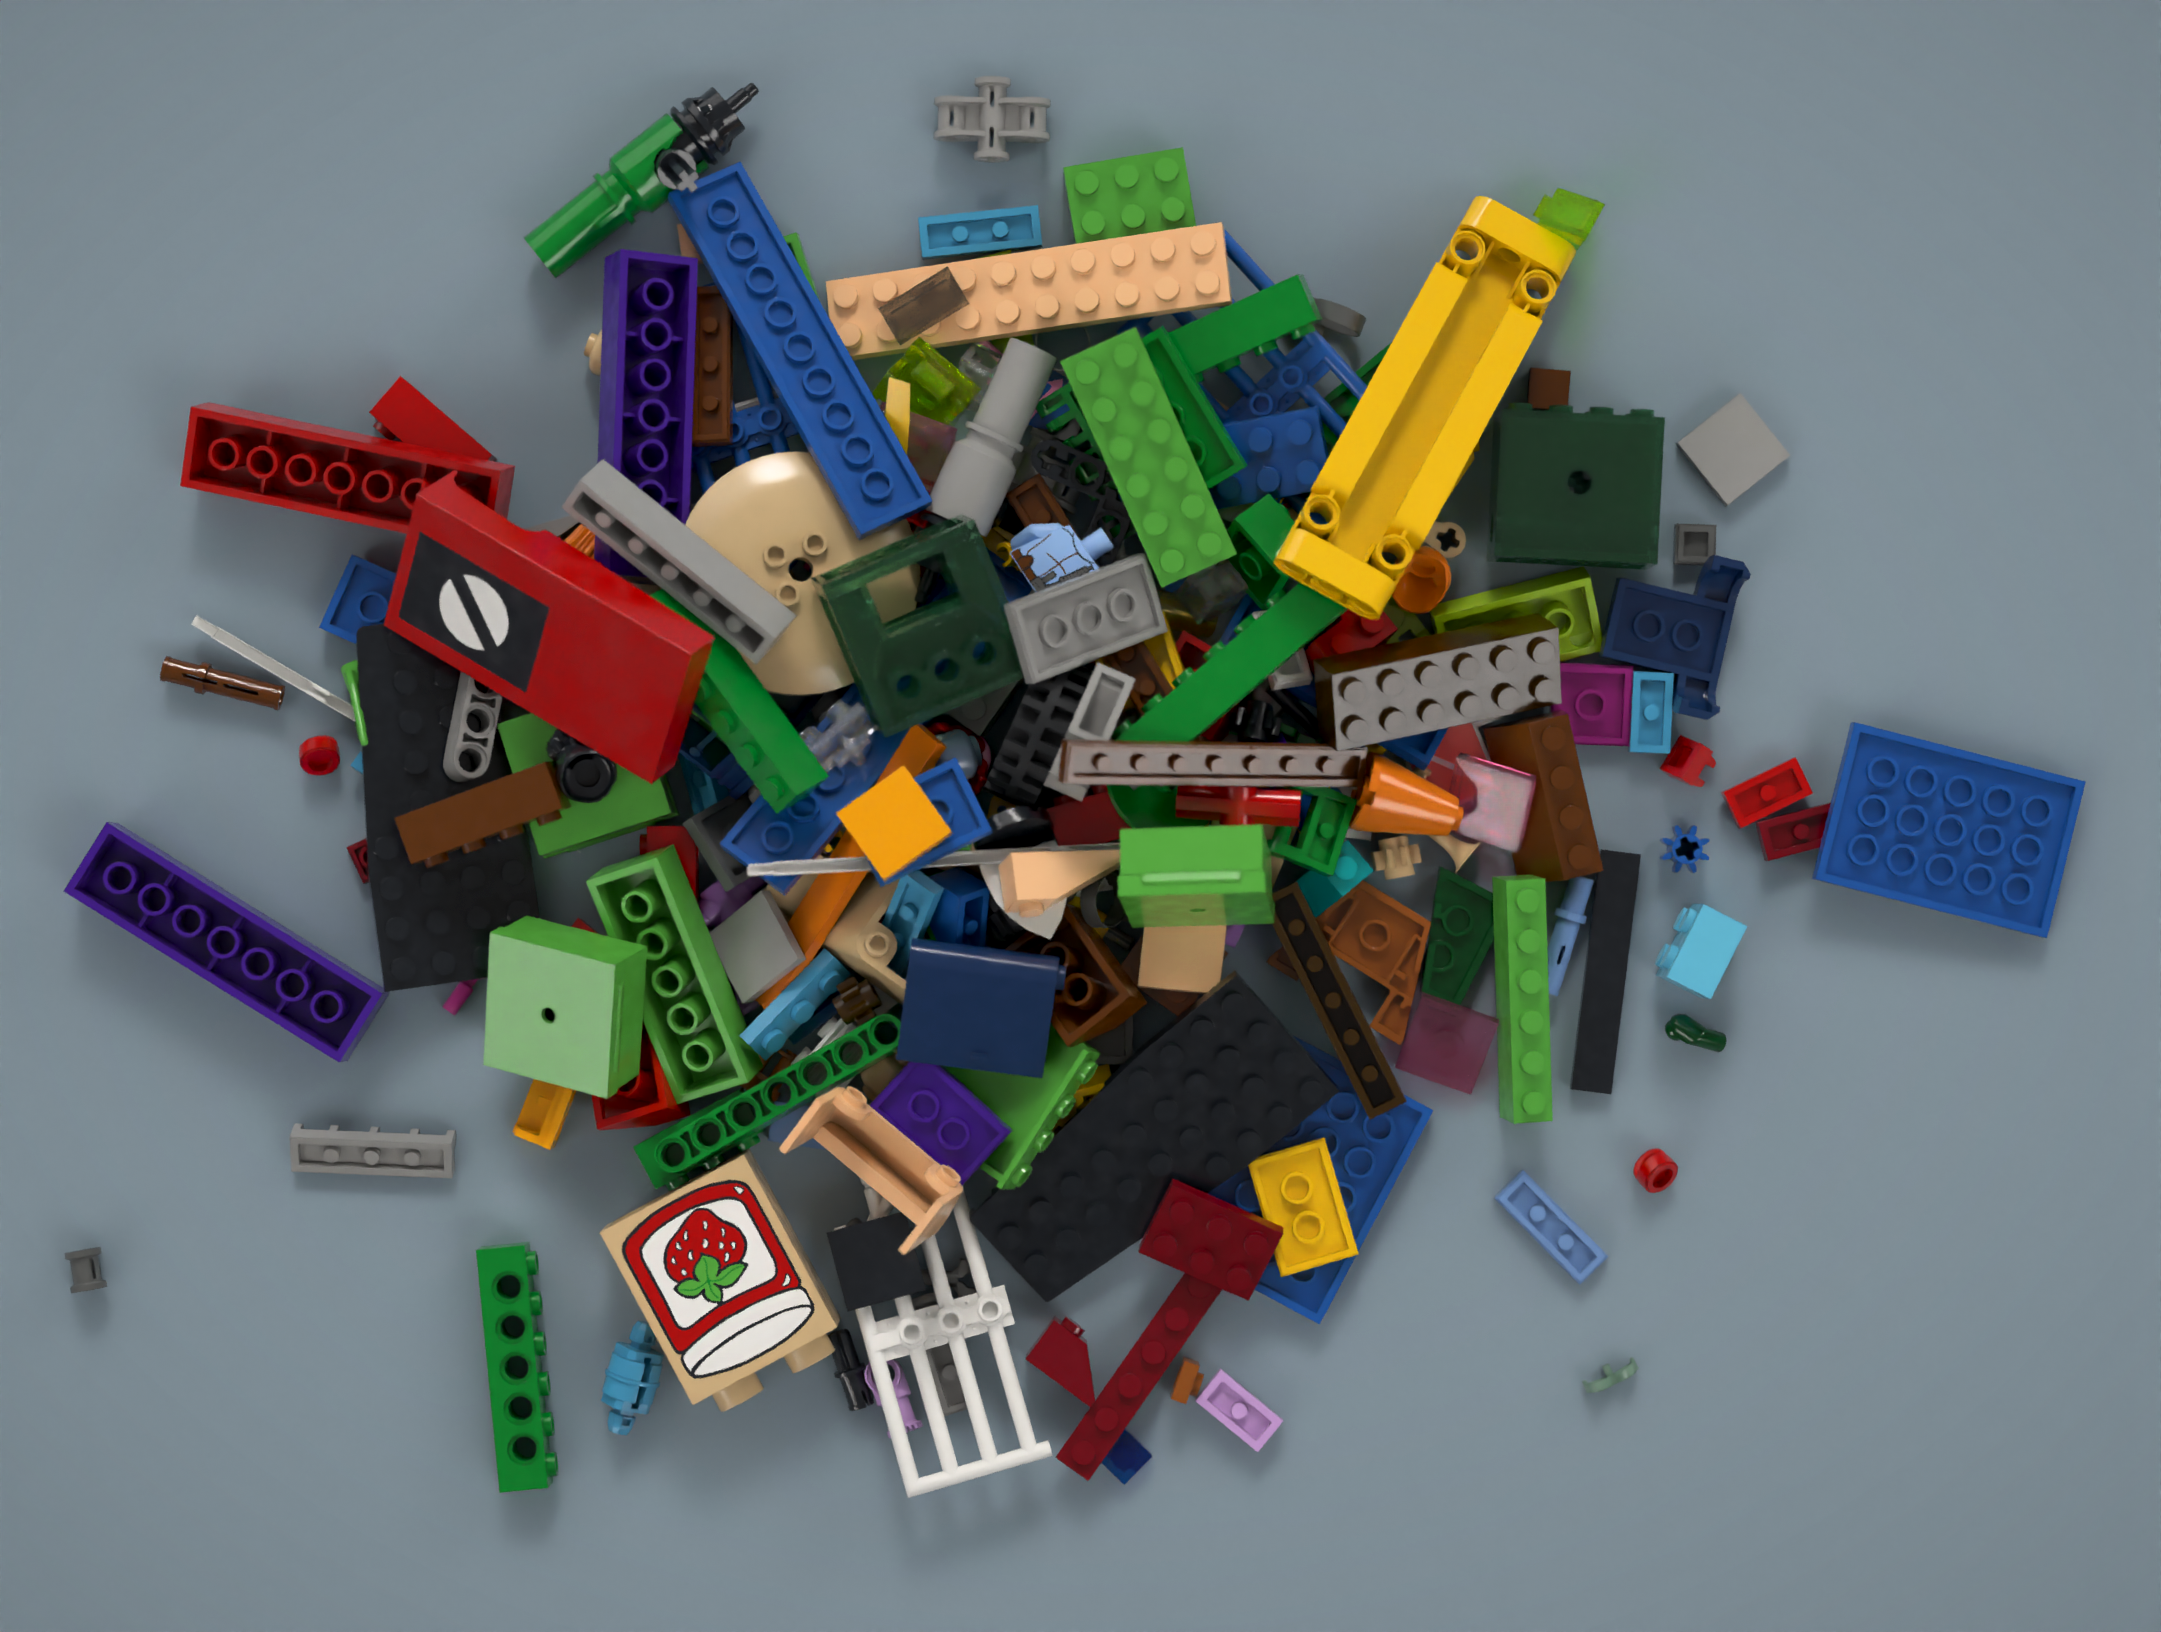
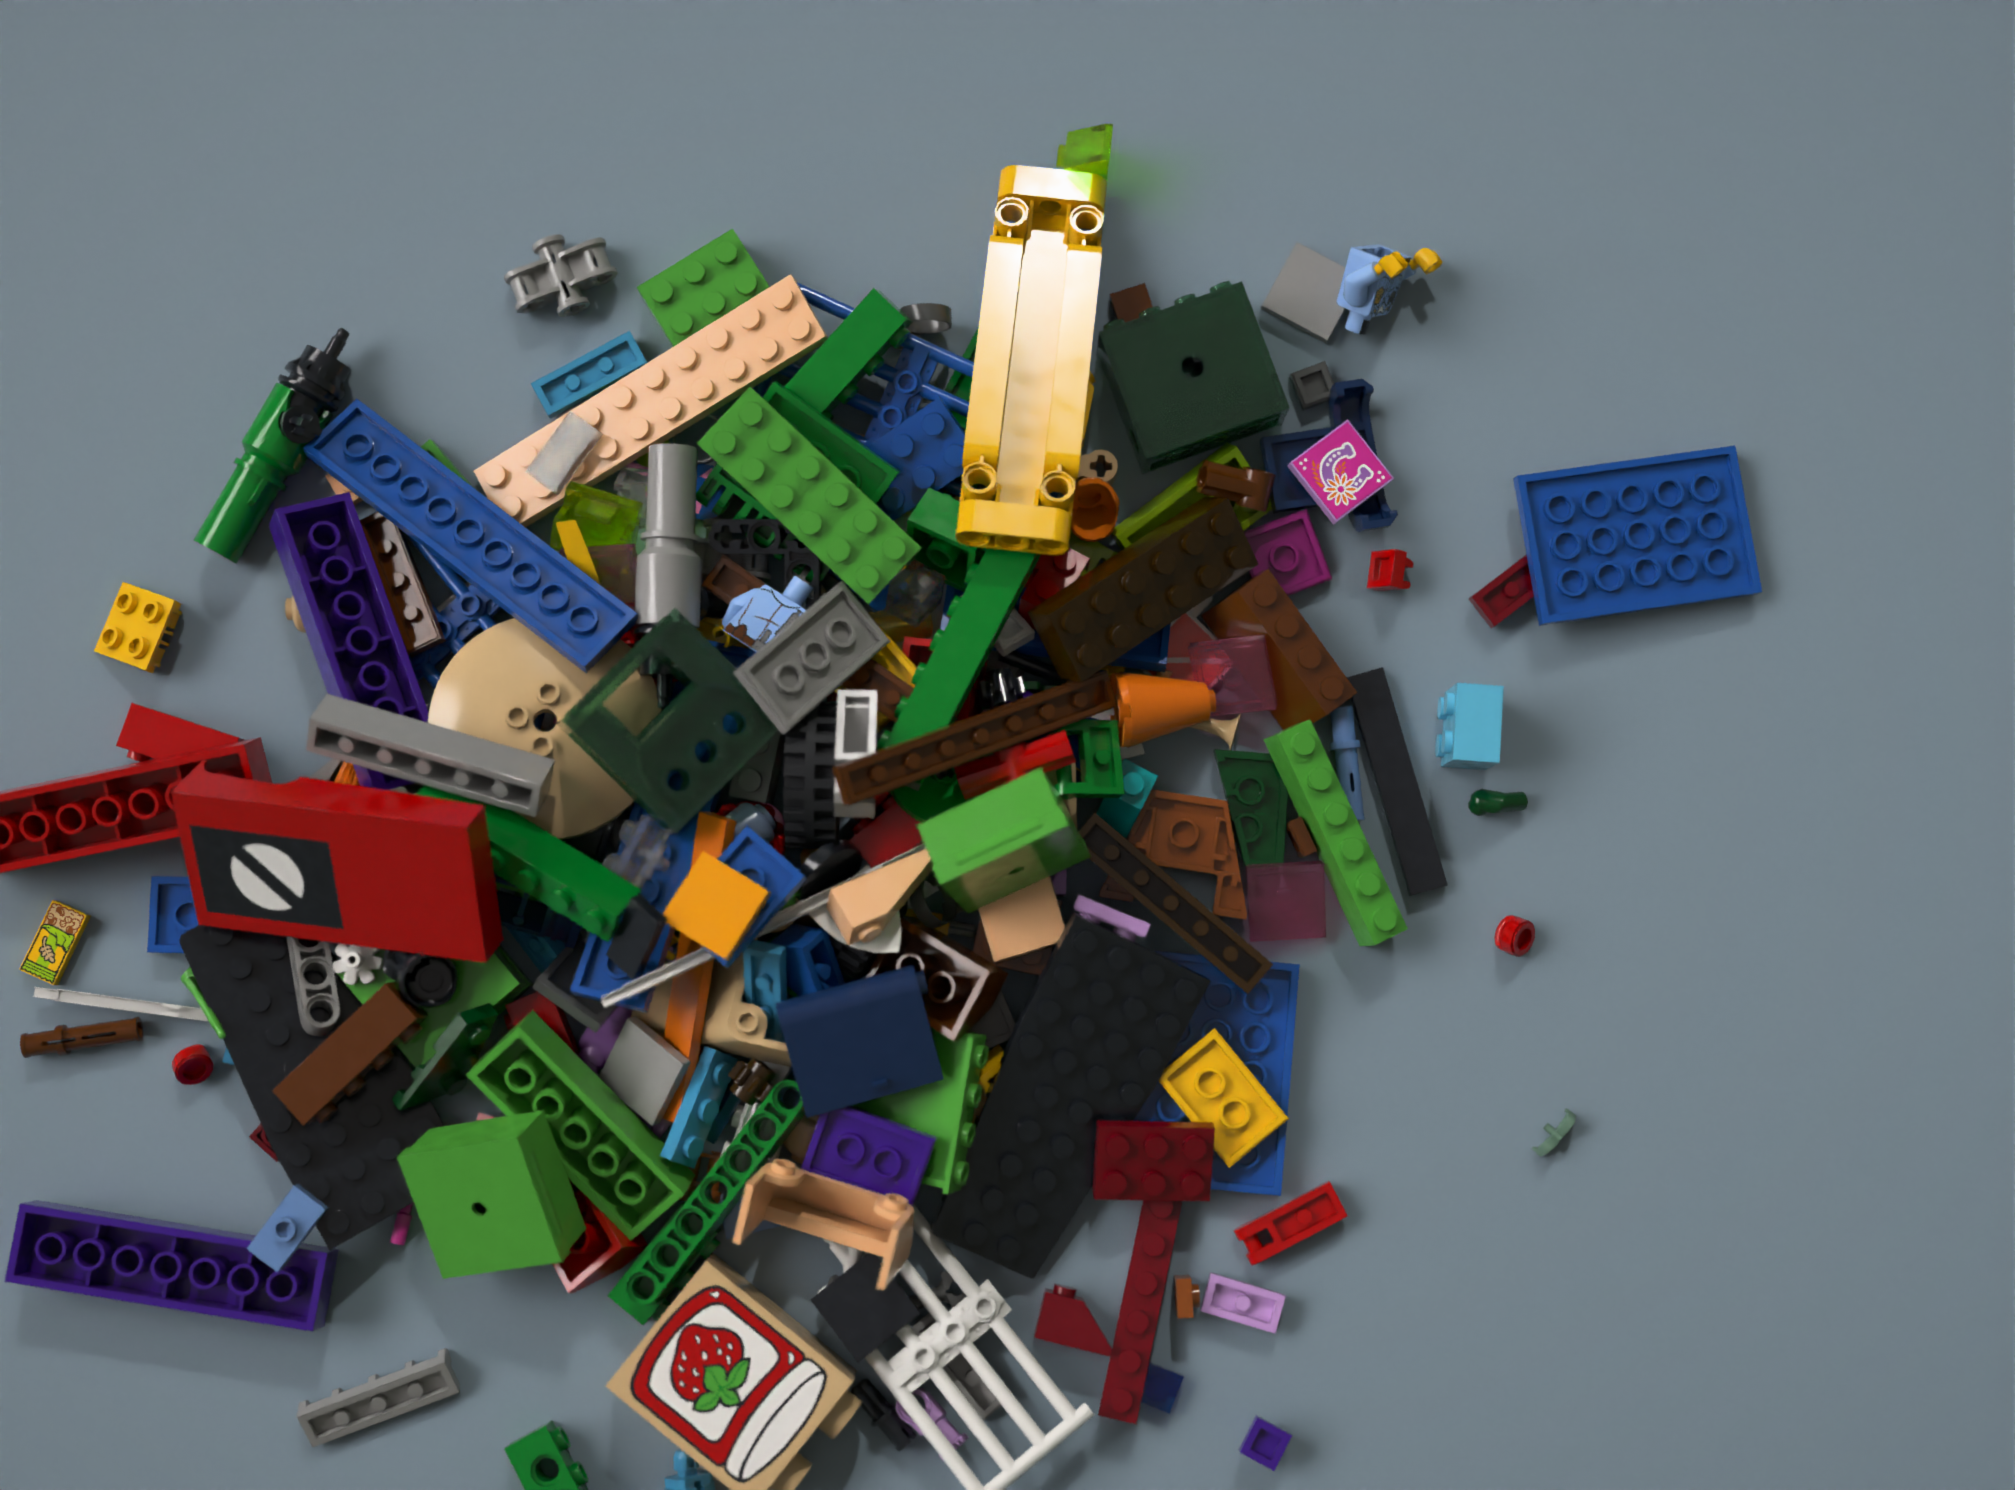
camera: 20 degrees left, 5 degrees down
(231, 578) = (55, 942): none -> tile
(355, 954) = (287, 1228): none -> medium blue plate
(432, 299) = (137, 627): none -> yellow hinge
(526, 736) = (361, 968): none -> white plant
(544, 1113) = (519, 1298): light orange hinge -> none
(582, 855) = (454, 1057): none -> dark green wing
(806, 820) = (636, 936): none -> black tile
(1204, 1550) = (1265, 1443): none -> dark purple tile
(1279, 999) = (1124, 923): none -> lavender tile
(1319, 1354) = (1292, 1222): none -> red plate
(1396, 857) = (1173, 757): tan gear -> none
(1487, 988) = (1300, 837): none -> reddish brown tile
(1551, 1227) = (1445, 1023): medium blue tile -> none
(1580, 620) = (1244, 486): none -> reddish brown piece
(1651, 712) = (1340, 547): dark azure plate -> none
(1674, 843) = (1426, 654): blue gear -> none
(1682, 644) = (1340, 472): none -> tile
(1767, 792) = (1467, 569): red plate -> none
(1799, 466) = (1374, 278): none -> light blue torso

